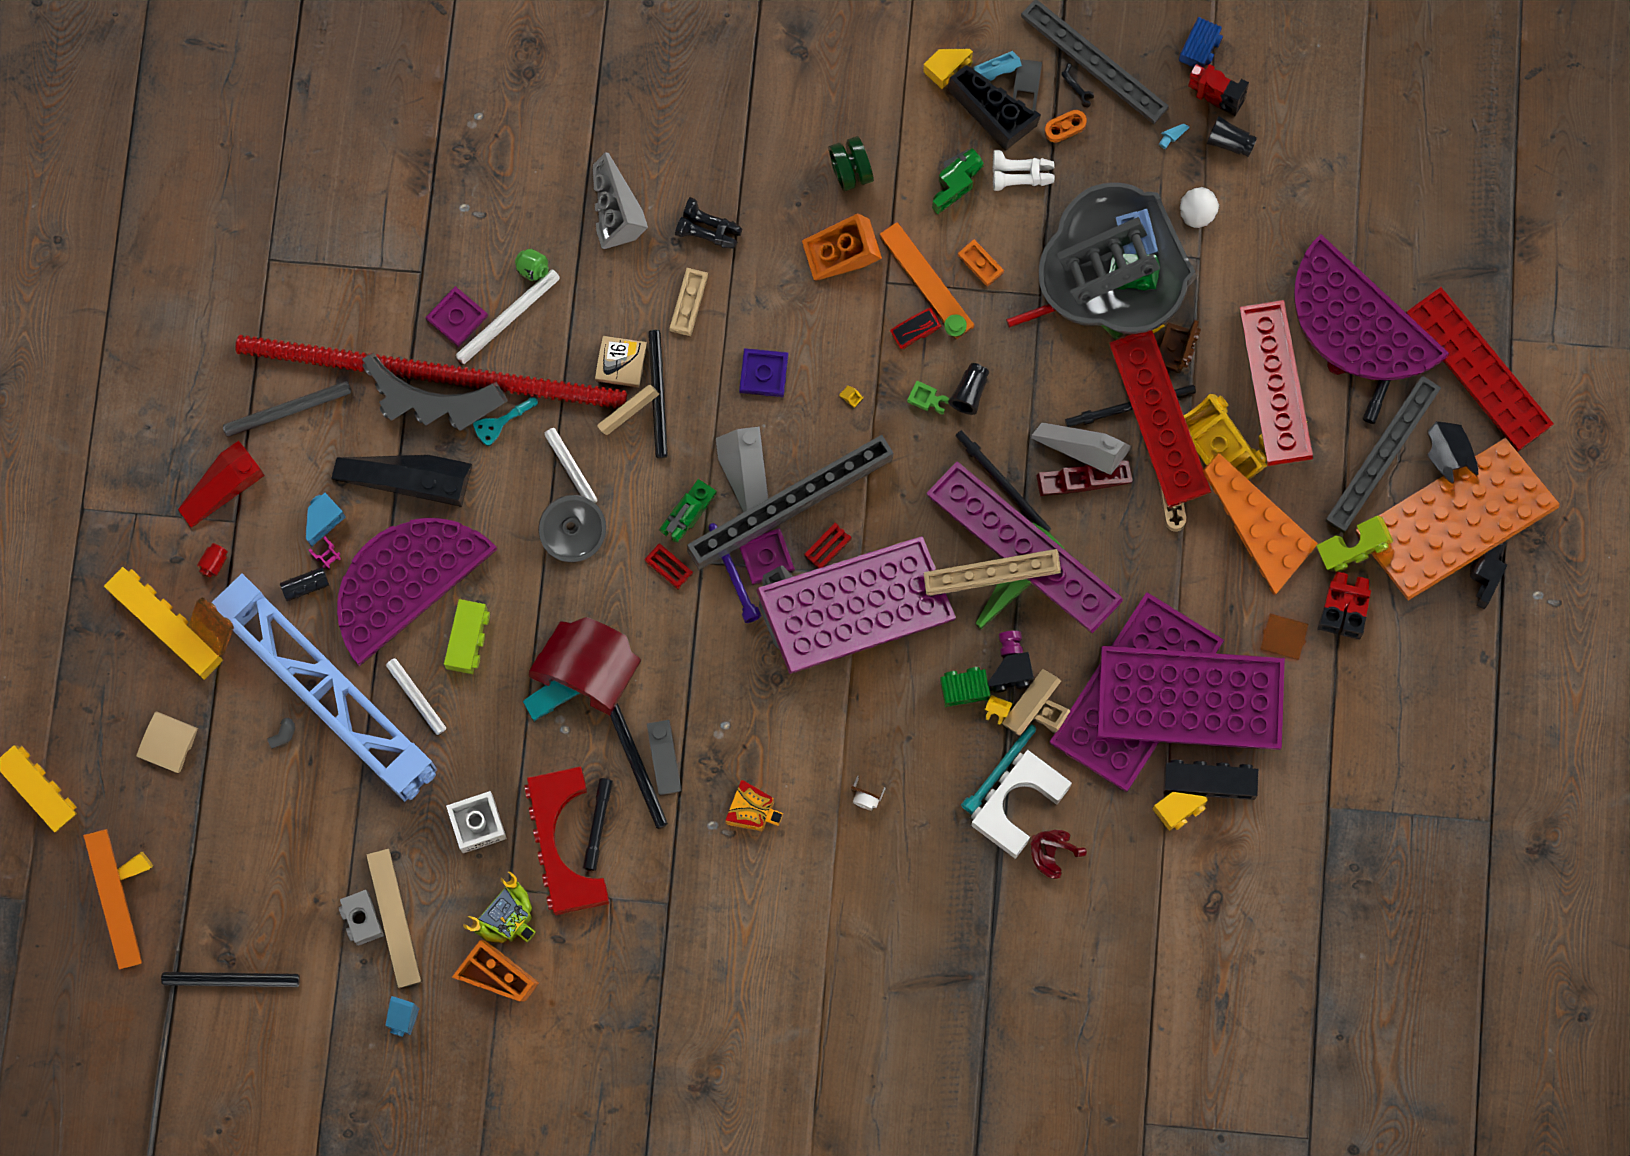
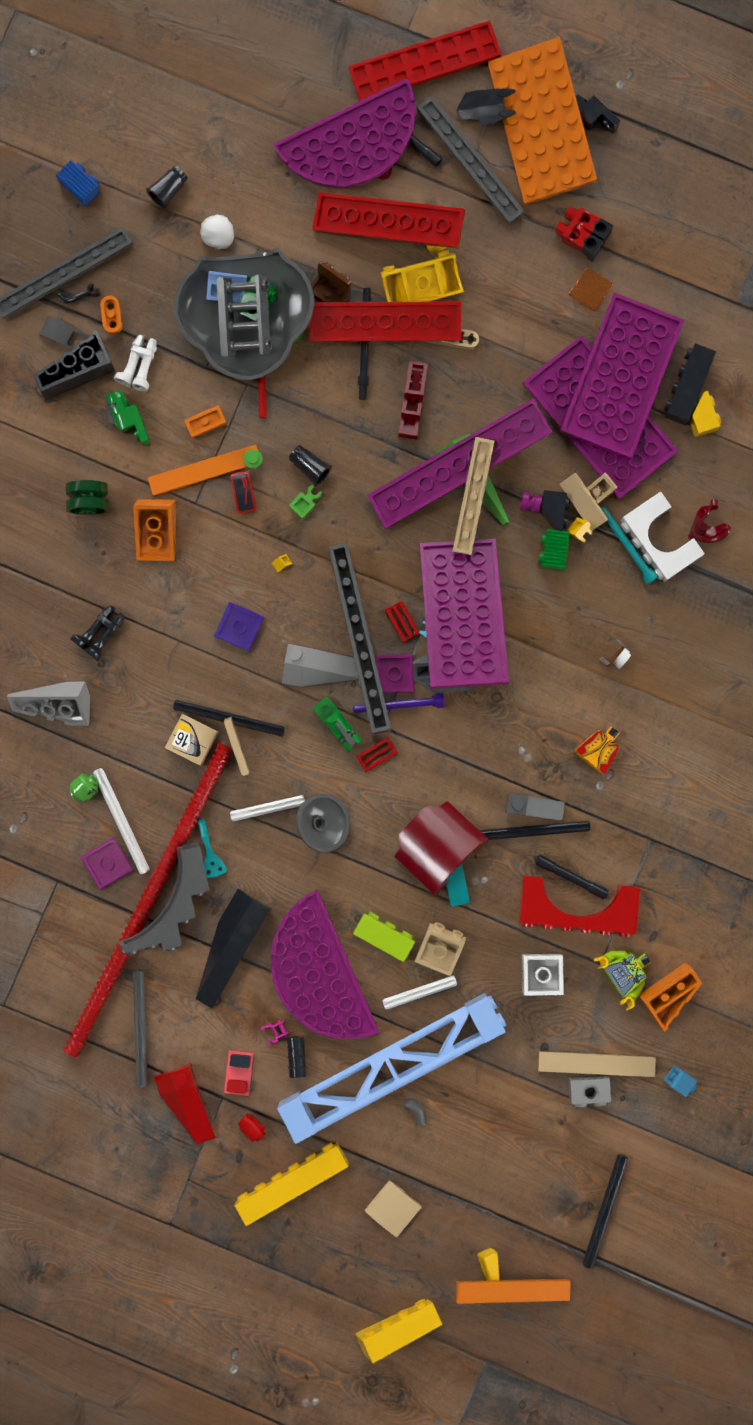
camera: 75 degrees left, 10 degrees up
(211, 626) = (313, 1146): clear orange tile -> none
(268, 530) = (238, 1072): none -> piece
(322, 518) = (244, 1026): dark azure slope -> none
(471, 702) = (440, 948): none -> tan plate
(688, 302) = (158, 668): tan tile -> none
(946, 63) = (24, 392): yellow slope -> none
(973, 449) = (361, 478): black bar -> none
(1003, 64) = (40, 350): medium azure plate -> none
(1086, 446) = (390, 386): light grey wedge -> none
(1172, 135) = (147, 233): medium azure bar -> none
(1218, 89) = (123, 181): red hips -> none
(1264, 528) = (500, 273): orange wing -> none
(1373, 537) = (541, 187): lime arch -> none

